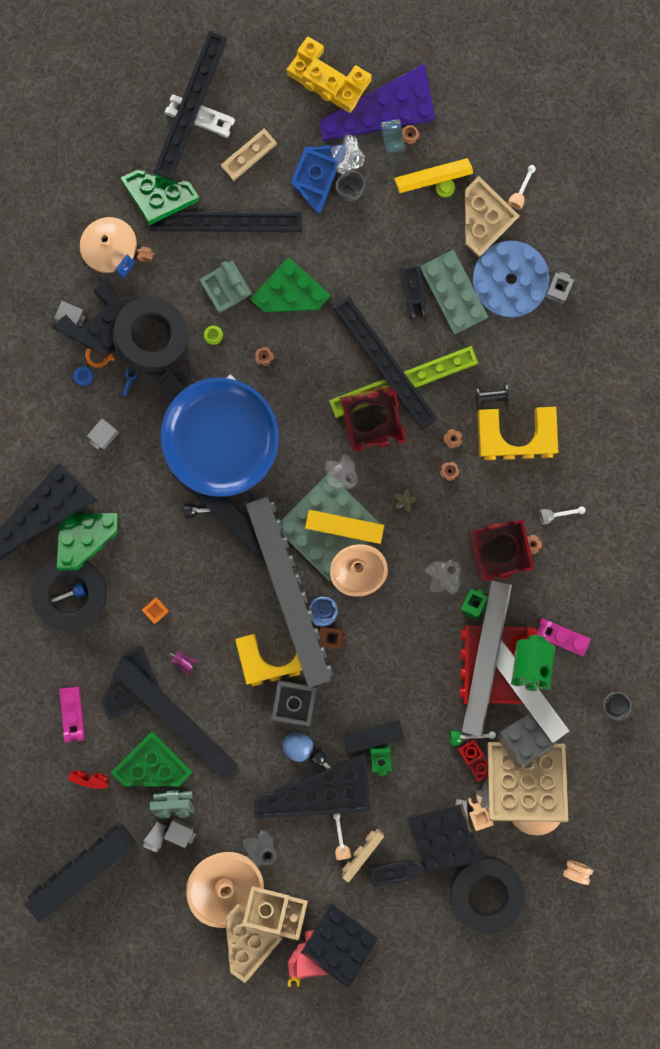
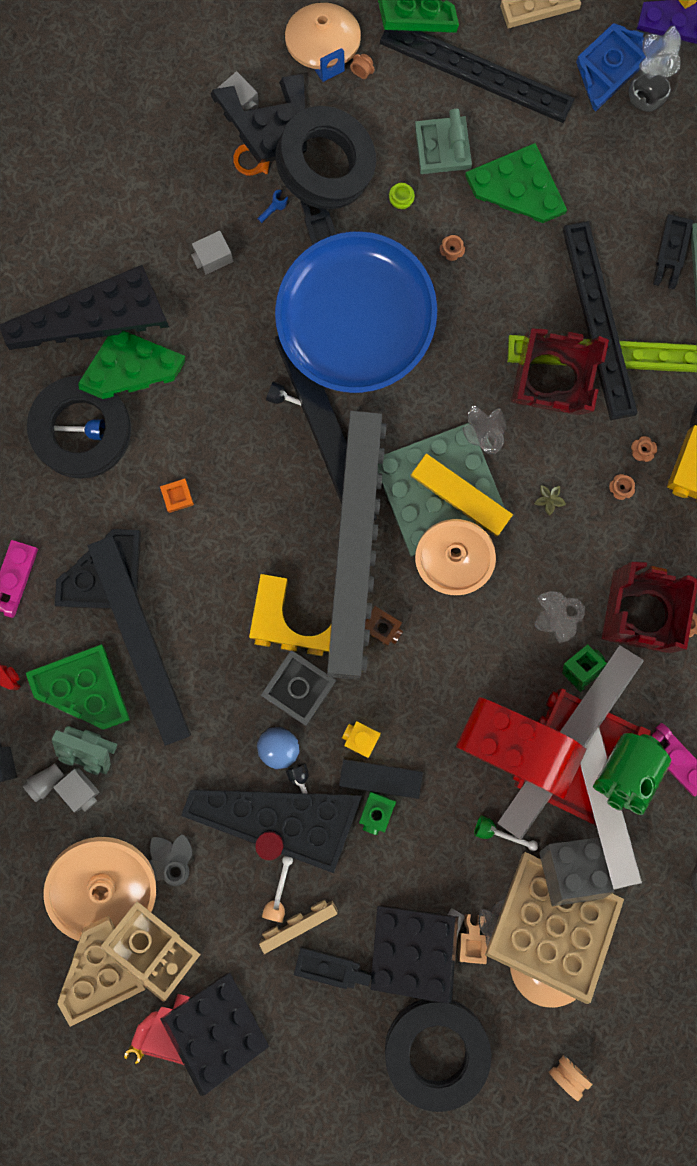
camera: 20 degrees right, 5 degrees down
(83, 376) = (220, 175): blue tile -> none
(182, 662) = (181, 575): flat silver piece -> none
(320, 812) = (269, 845): none -> dark red tile
(328, 609) = (394, 589): medium blue hair -> none
(349, 717) = (360, 738): none -> yellow brick
(455, 679) = (521, 747): none -> red brick
(475, 759) = (497, 867): red slope -> none

